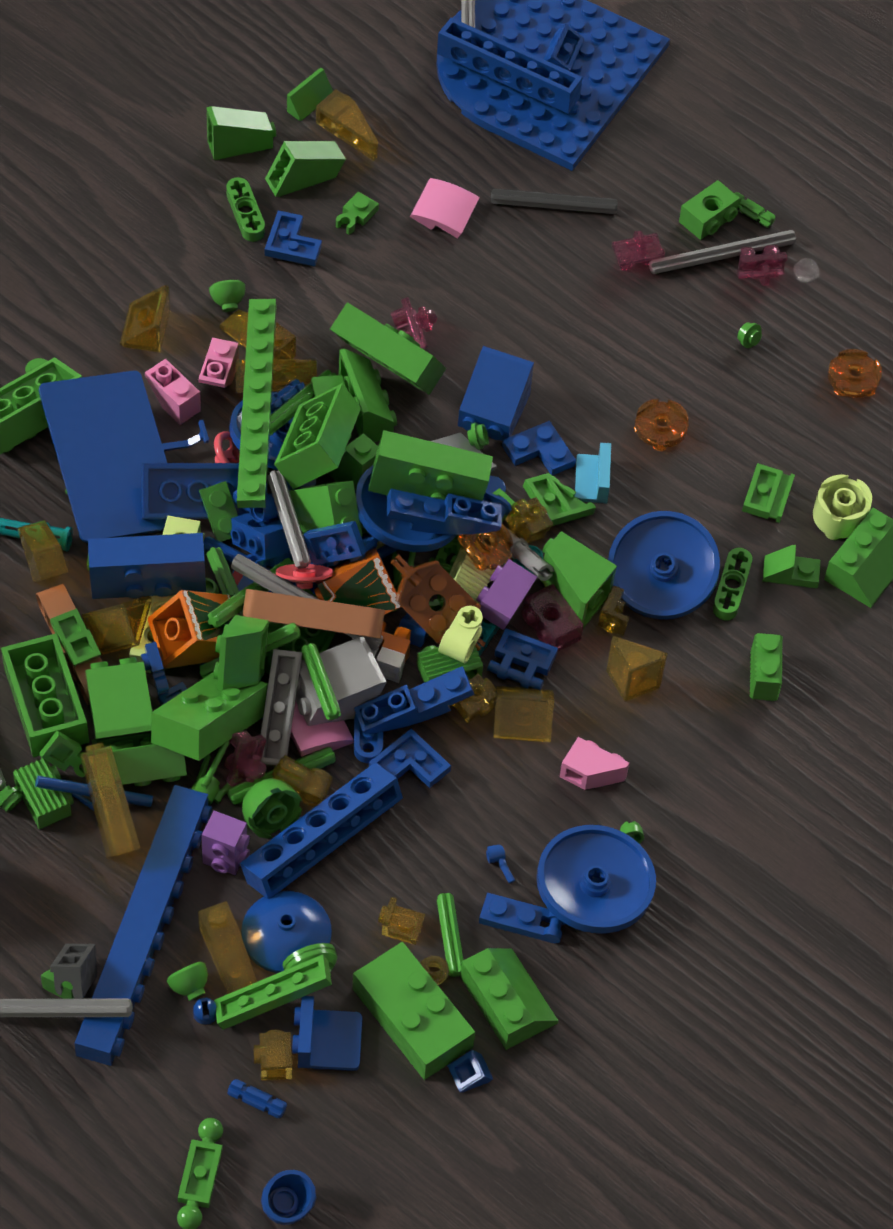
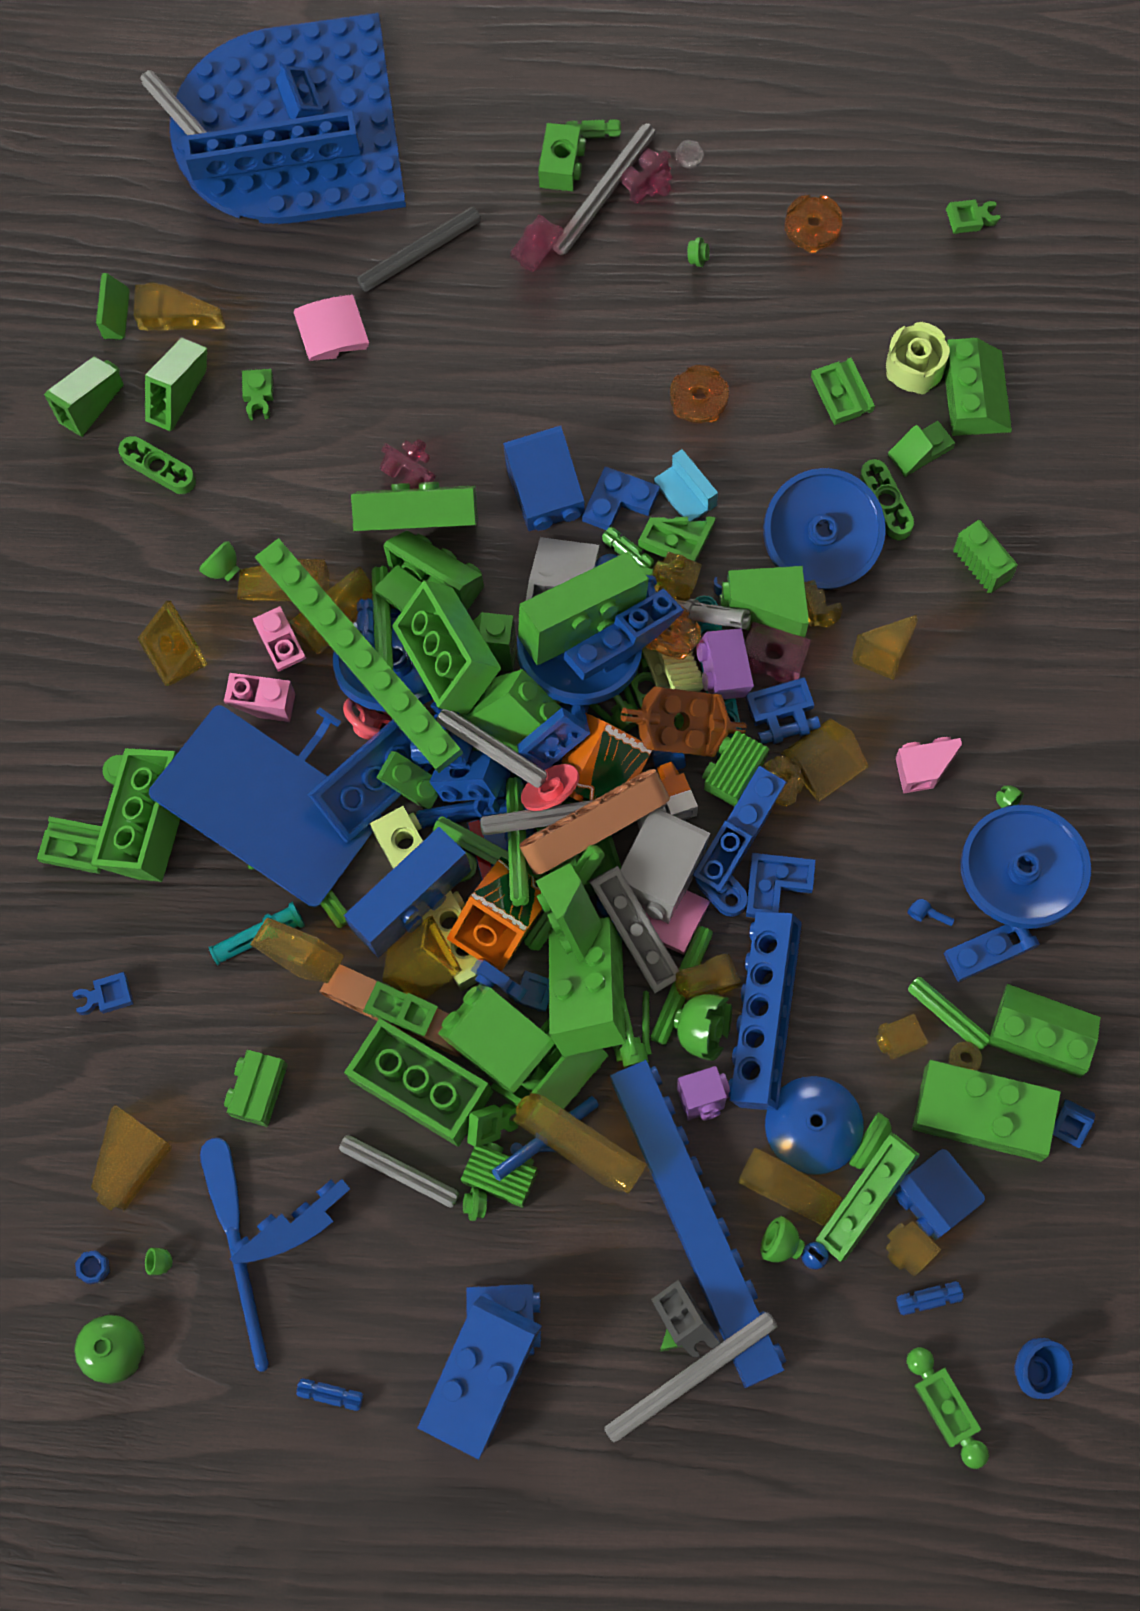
camera: 30 degrees left, 15 degrees up
(246, 761) = (648, 1000): clear pink hips -> none
(287, 244) = (227, 472): blue plate -> none
(321, 682) = (657, 880): bright green axle -> none
(462, 635) = (735, 741): yellowish green piece -> none
(478, 436) = (562, 530): bright green plate -> none
(513, 480) = (622, 545): none -> bright green axle

